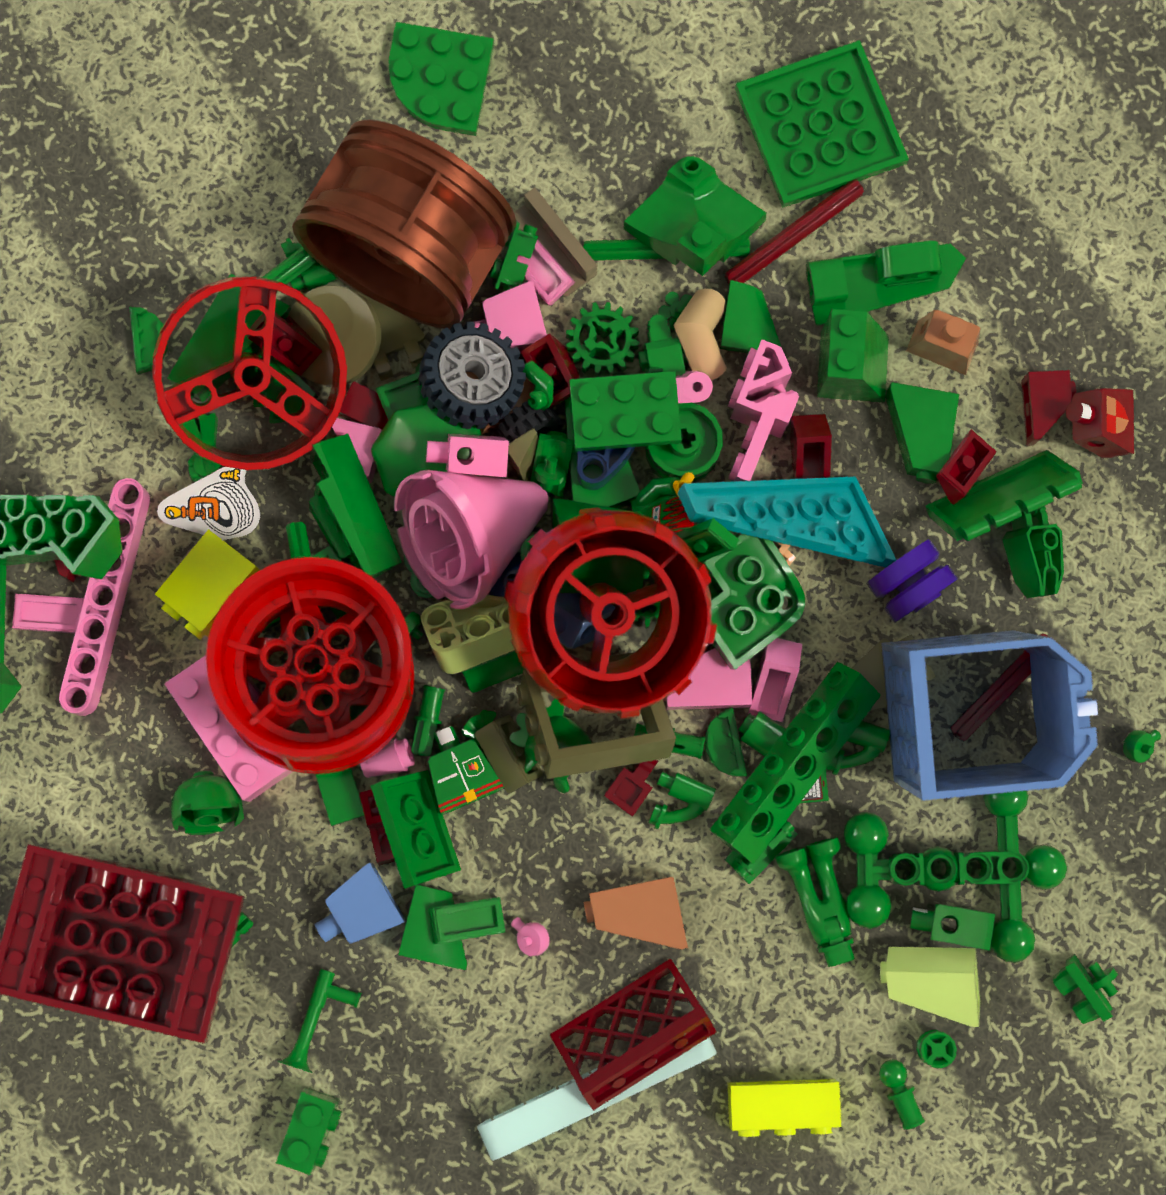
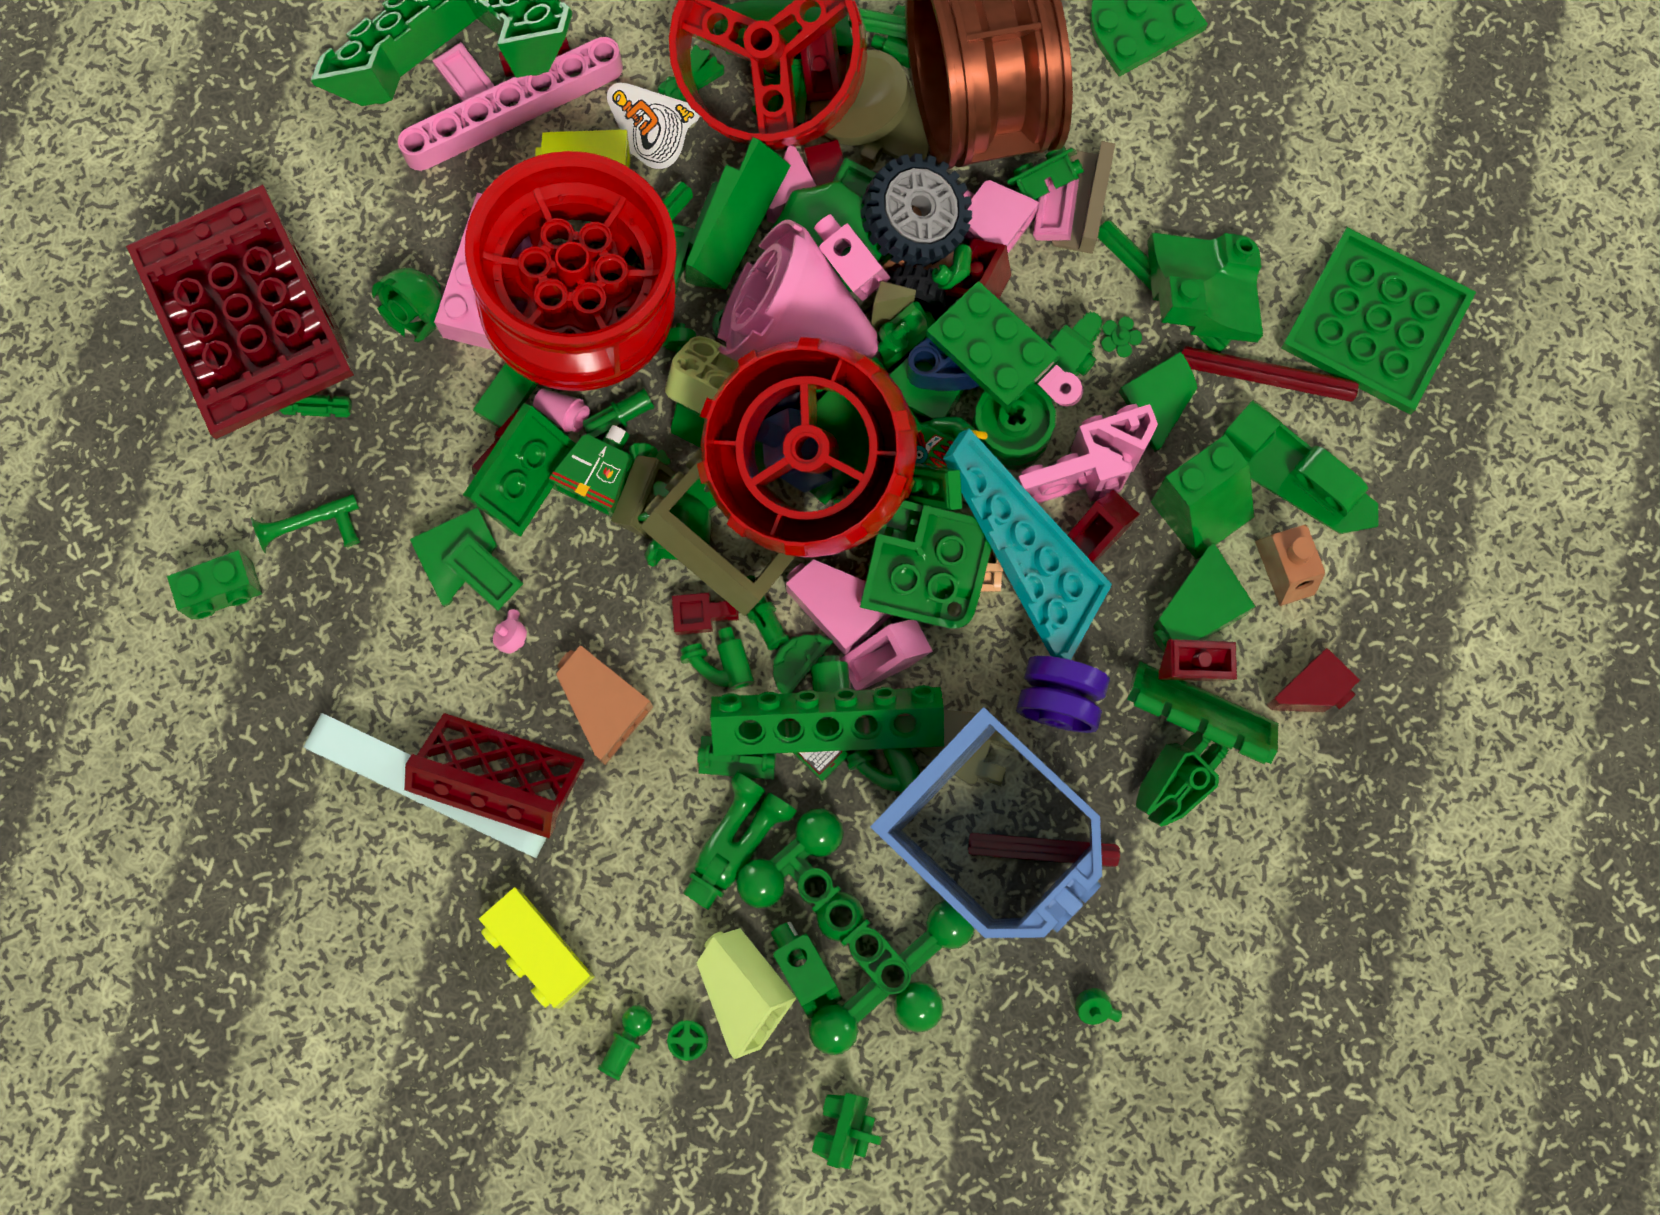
camera: 55 degrees right, 5 degrees down
(360, 908) = (425, 482): medium blue torso -> none
(595, 327) = (1058, 299): green gear -> none
(695, 332) = (1112, 355): tan brick -> none
(1103, 421) = (1343, 744): dark red torso -> none

